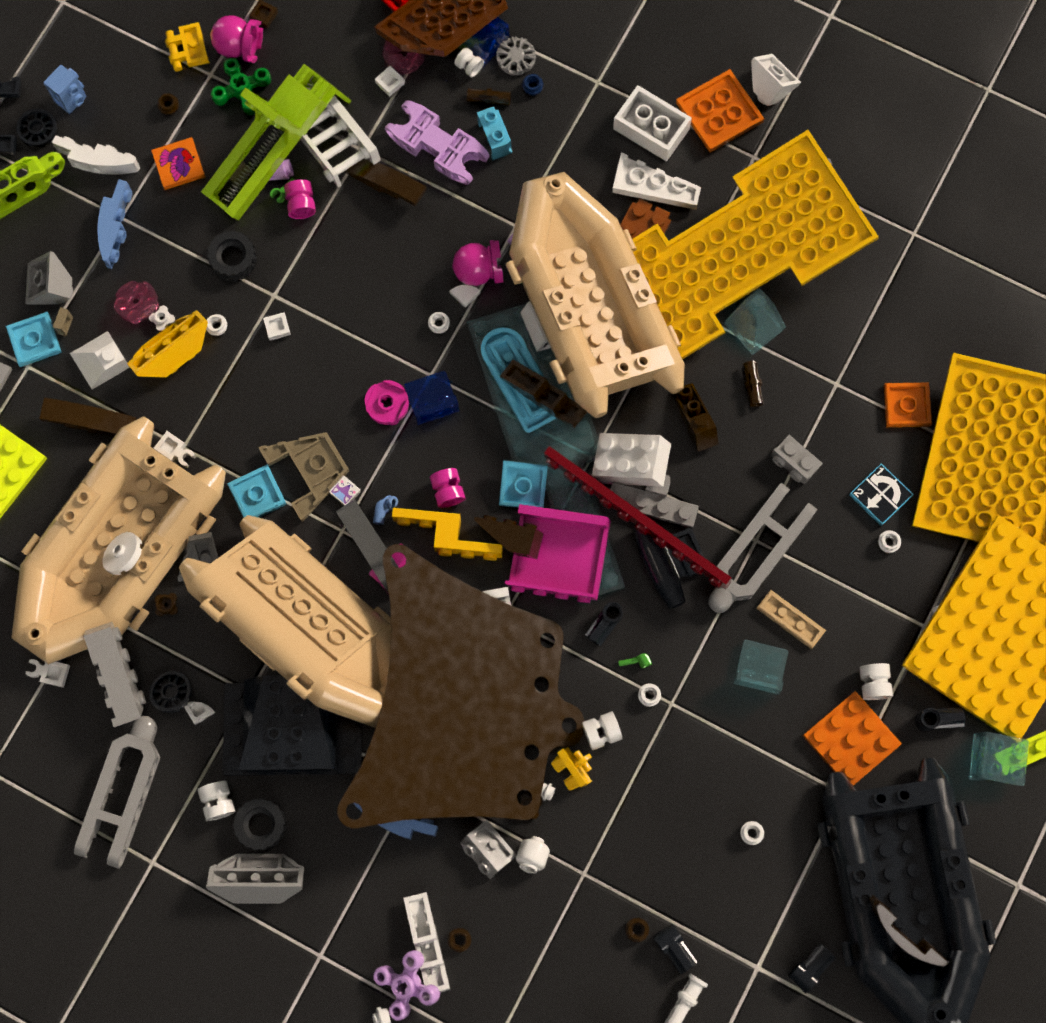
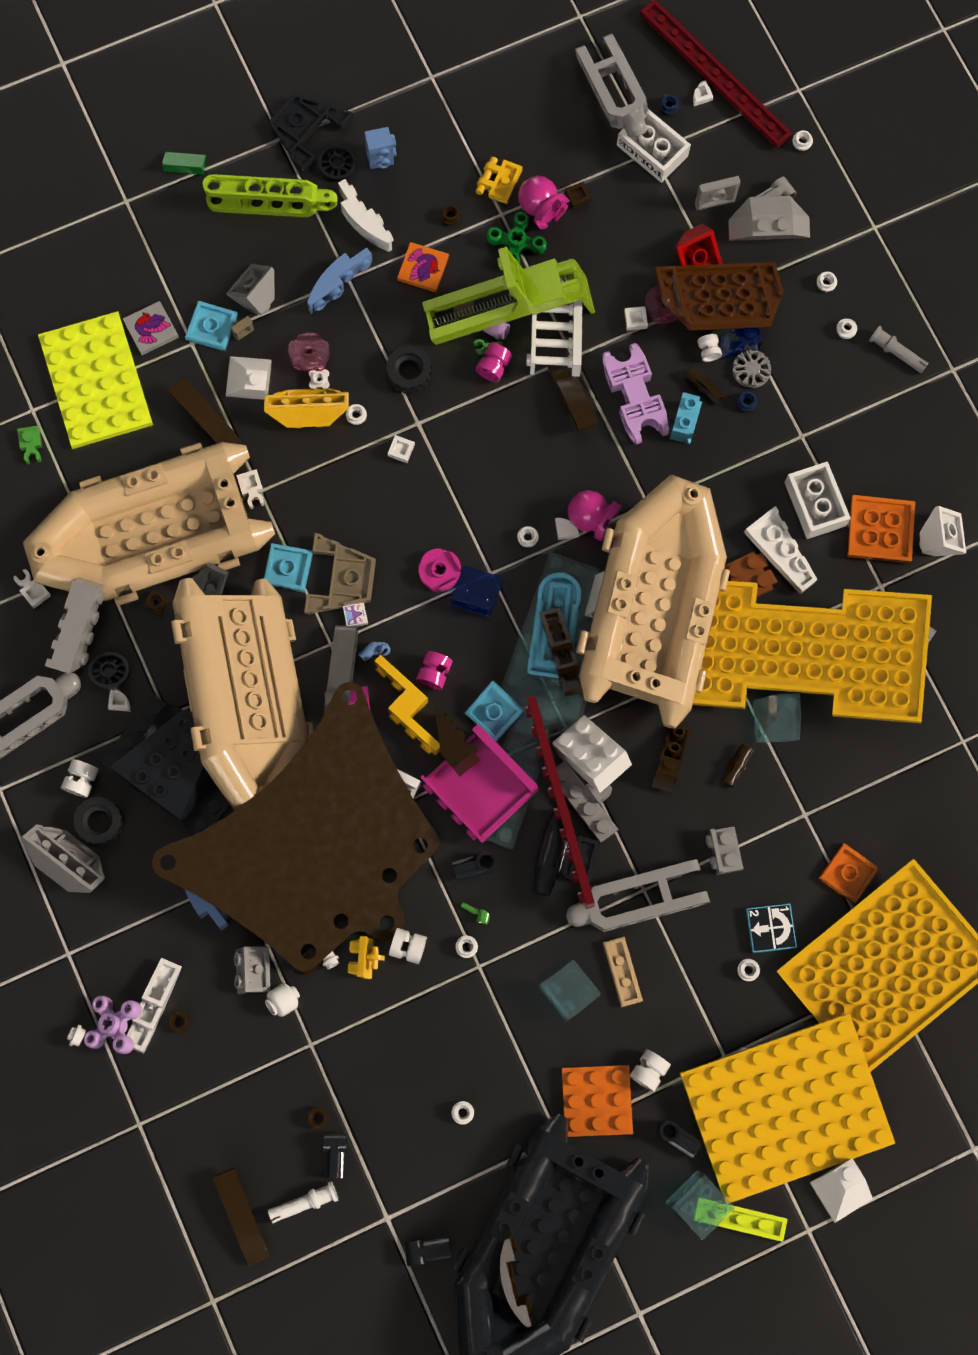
camera: 30 degrees right, 0 degrees up
(122, 553) = (150, 539): white plate -> none

